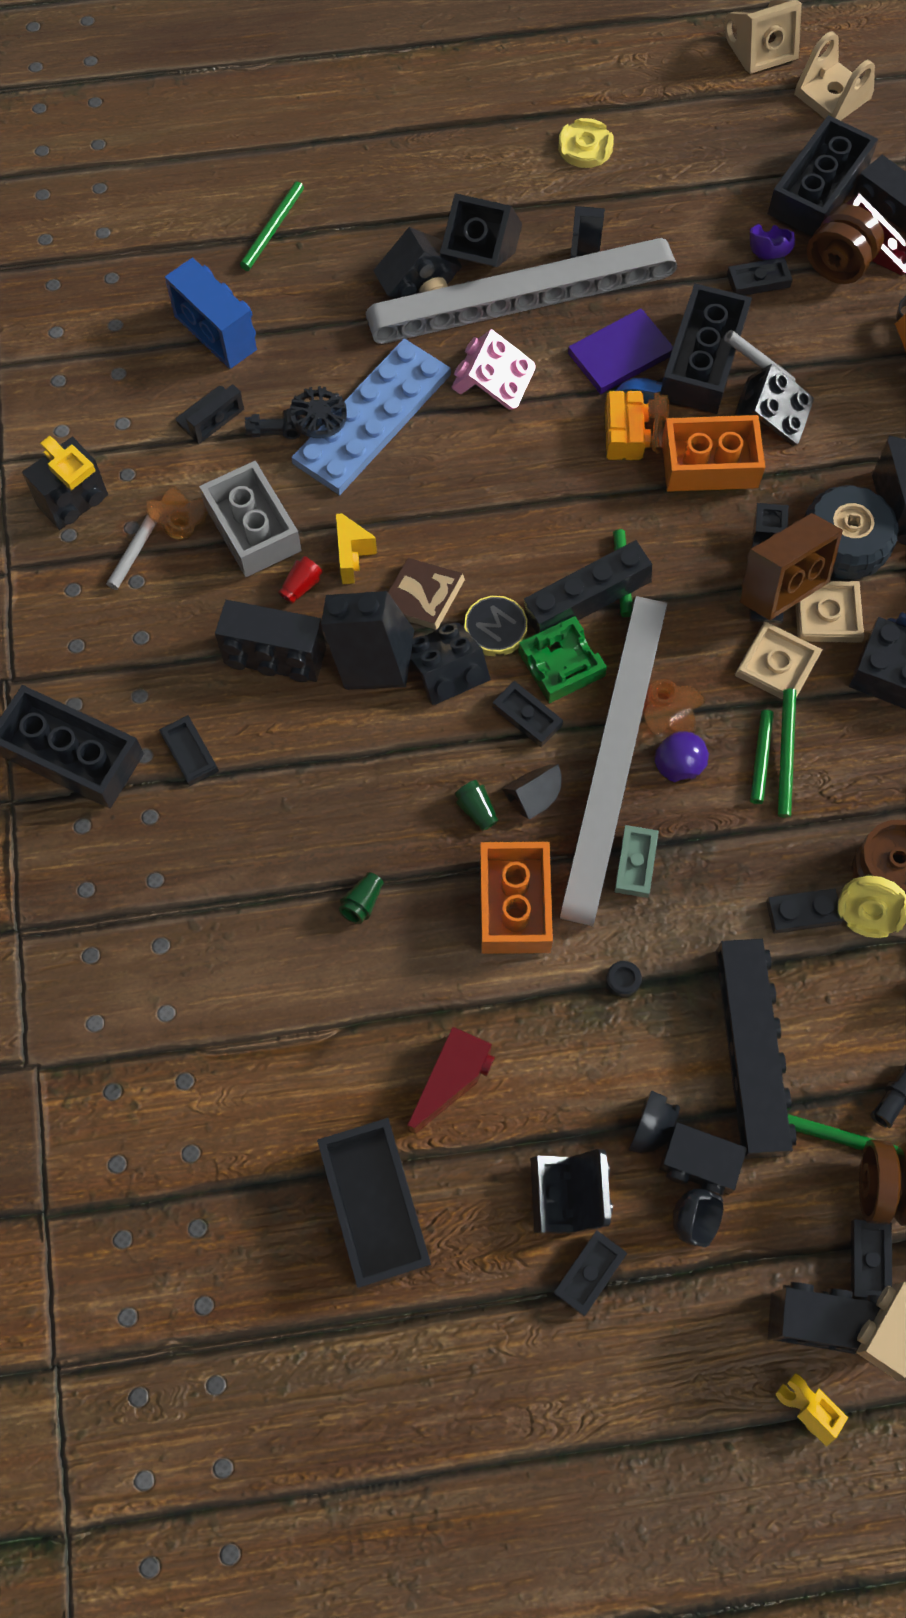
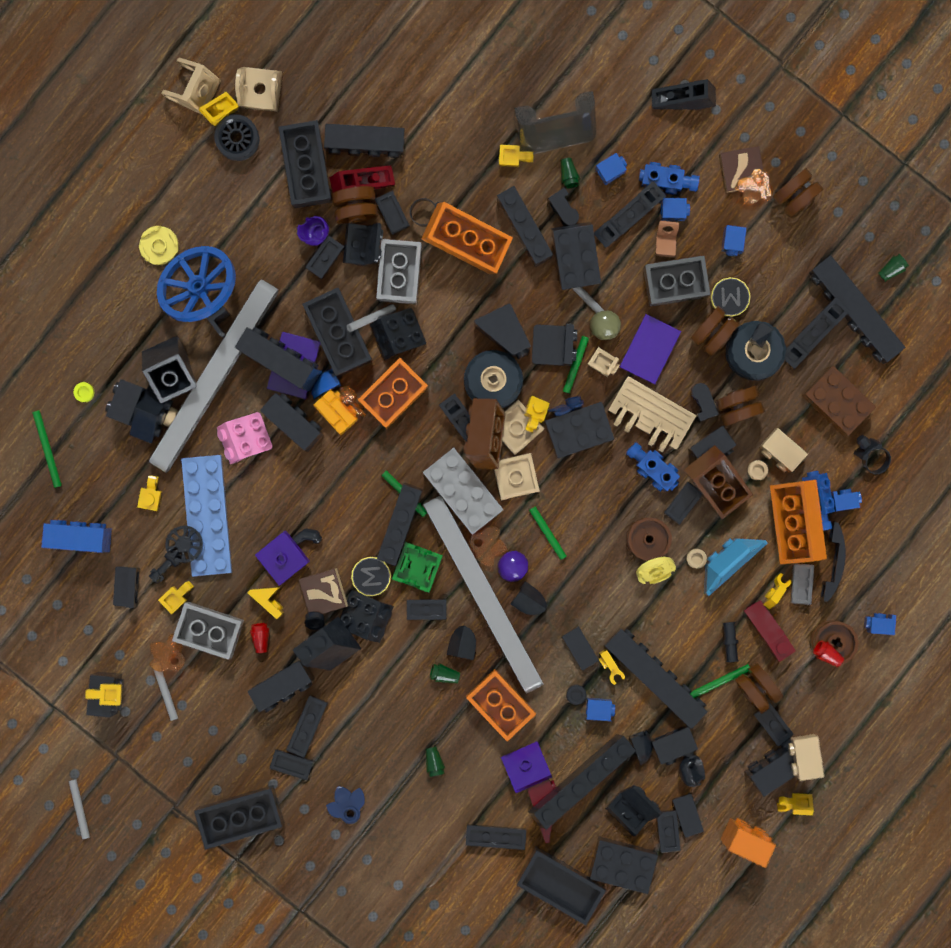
camera: 40 degrees left, 20 degrees up
(206, 850) = (346, 801): none -> dark blue plate
(243, 455) = (174, 598): none -> yellow plate
(252, 724) = (307, 726): none -> black tile
(332, 349) = (149, 496): none -> yellow plate
(349, 1063) = (496, 836): none -> black plate
(367, 206) = (84, 392): none -> neon yellow tile
(392, 221) = (124, 401): none -> black brick
(412, 520) = (282, 558): none -> dark purple plate
(465, 521) = (308, 534): none -> black arm
(474, 1006) = (526, 767): none -> dark purple plate
(485, 1259) = (623, 865): none -> black brick
(533, 1083) = (581, 781): none -> black brick
(567, 388) = (292, 421): none -> black brick
(593, 192) = (198, 285): none -> blue wheel
(615, 314) = (275, 357): none -> black brick
(636, 861) = (536, 637): sand green plate -> none
(637, 1278) = (687, 815): none -> black tile
(639, 1020) = (599, 709): none -> blue brick
(666, 809) = (529, 600): none -> black brick
(681, 926) = (580, 648): none -> black tile
(699, 620) = (463, 491): none -> light grey brick
(702, 1388) = (748, 842): none -> orange brick
(705, 970) = (607, 662): none -> yellow plate
(767, 110) = (230, 153): none -> black wheel
(772, 68) = (219, 108): none -> yellow slope
(787, 753) = (557, 522): green bar -> none
(803, 911) = (626, 593): black plate -> none
(814, 291) = (362, 244): none -> black bracket
(835, 344) = (399, 271): none -> light grey brick
(868, 608) = (536, 411): none -> yellow plate
(877, 296) = (392, 212): none -> black tile

